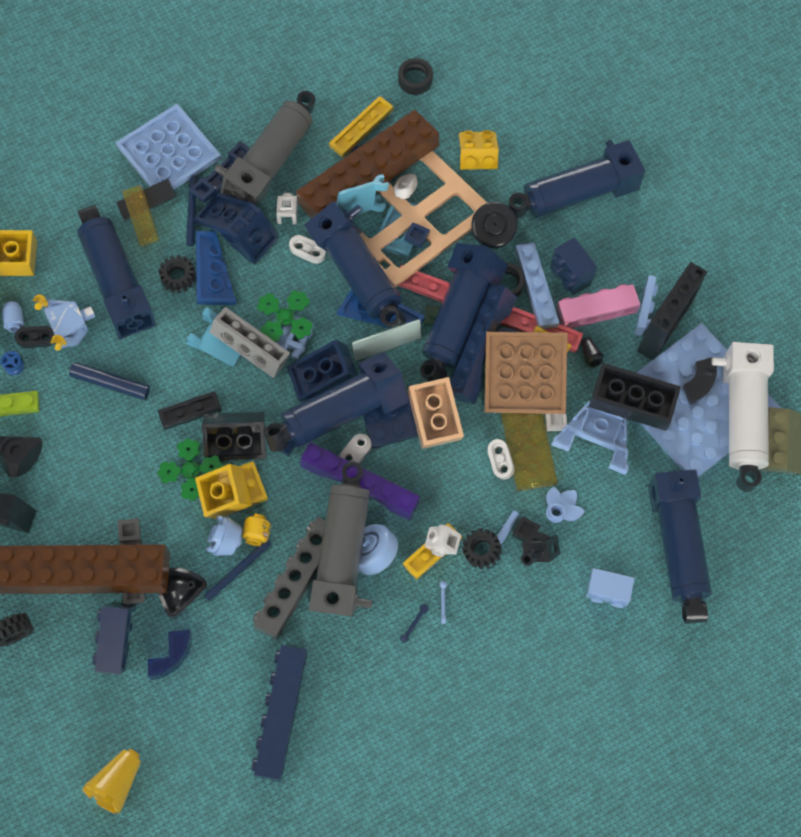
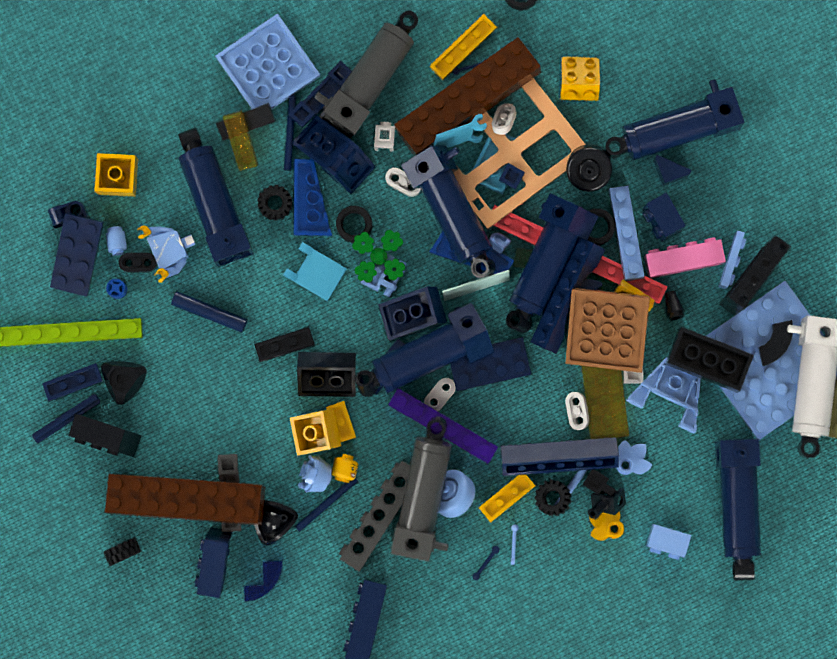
camera: 10 degrees right, 15 degrees up
(189, 470) = (284, 404): green plant -> none
(249, 342) = (344, 282): light grey brick -> none
(256, 276) = (346, 211): none -> black tyre
(409, 300) = (499, 242): none -> light blue tile
(435, 413) = (517, 367): light nougat brick -> none
(442, 540) = (513, 489): white brick -> none
(486, 505) = (559, 456): none -> dark blue brick
(537, 576) = (603, 526): none -> yellow plate
(575, 225) = (669, 170): none -> dark blue slope

